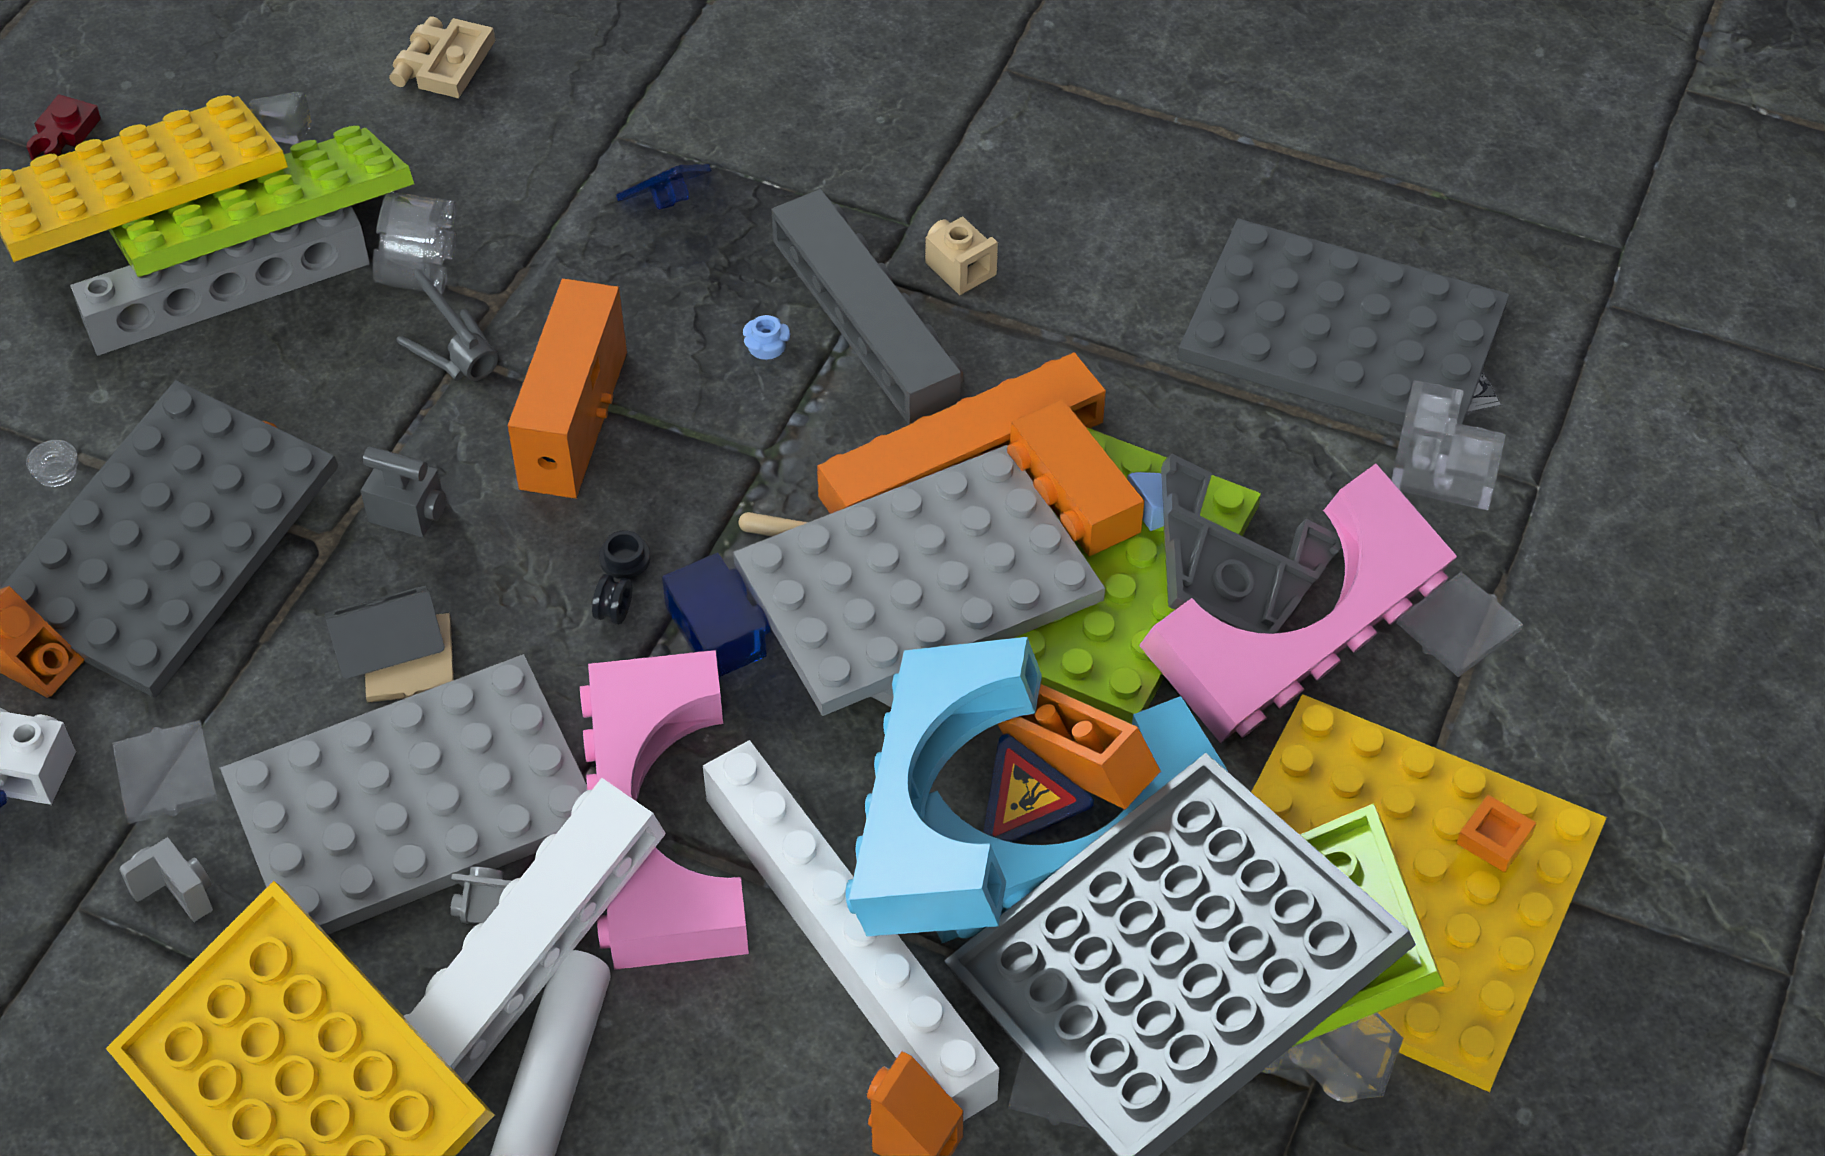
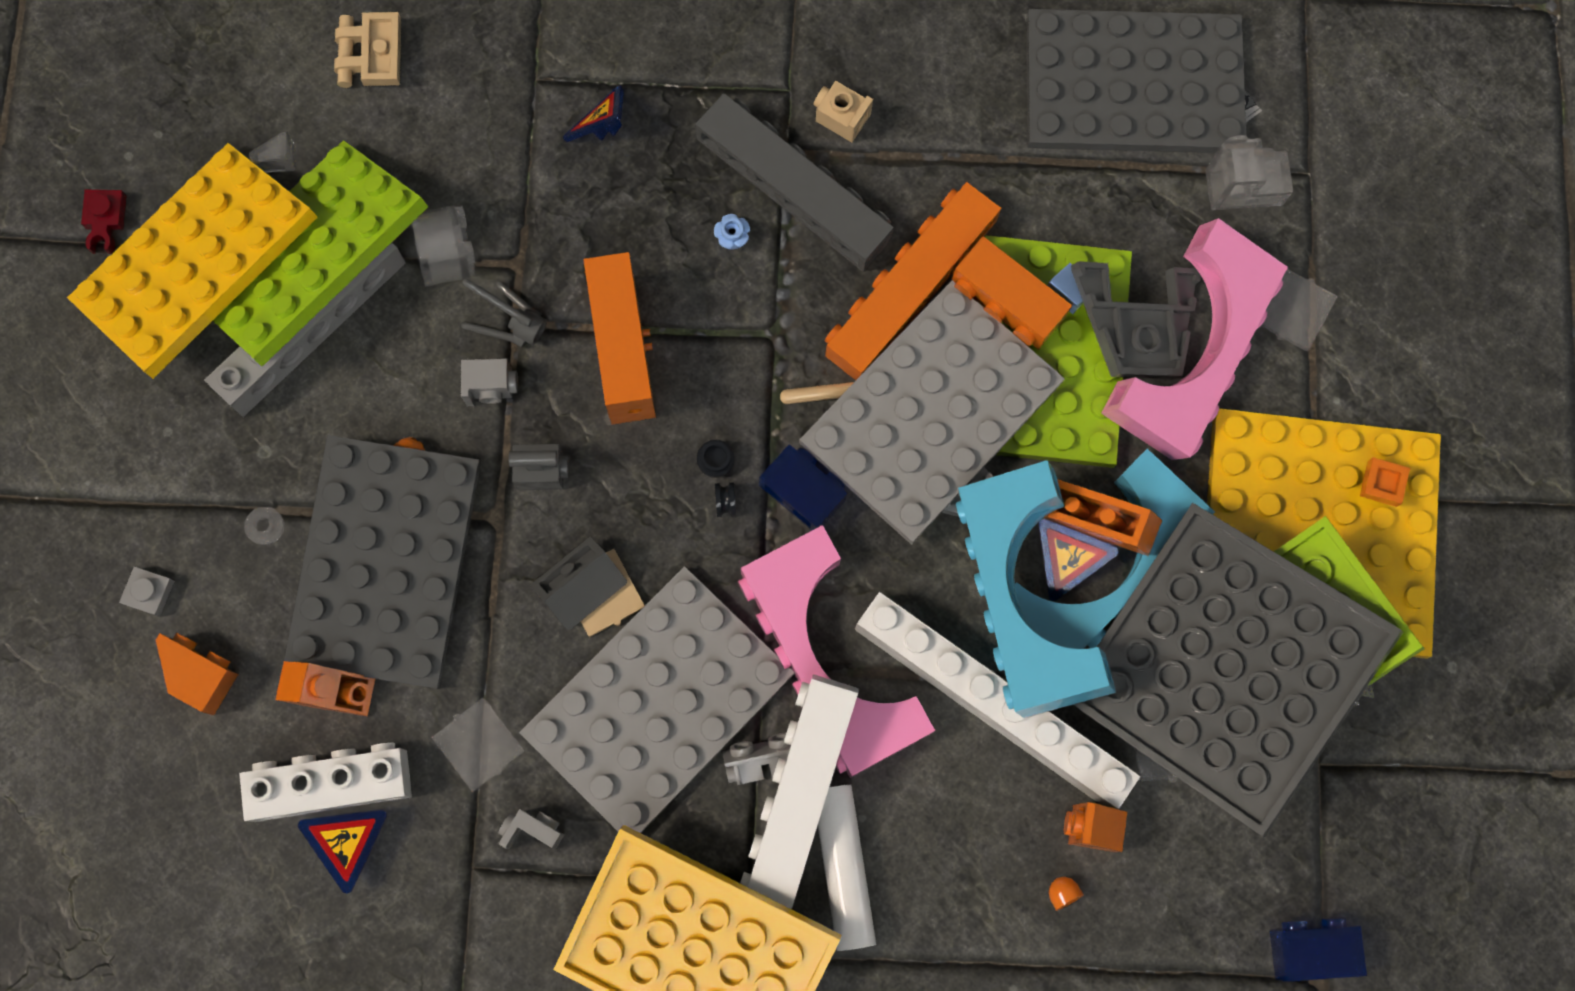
camera: 25 degrees left, 25 degrees up
(392, 392) = (487, 381): none -> light grey brick

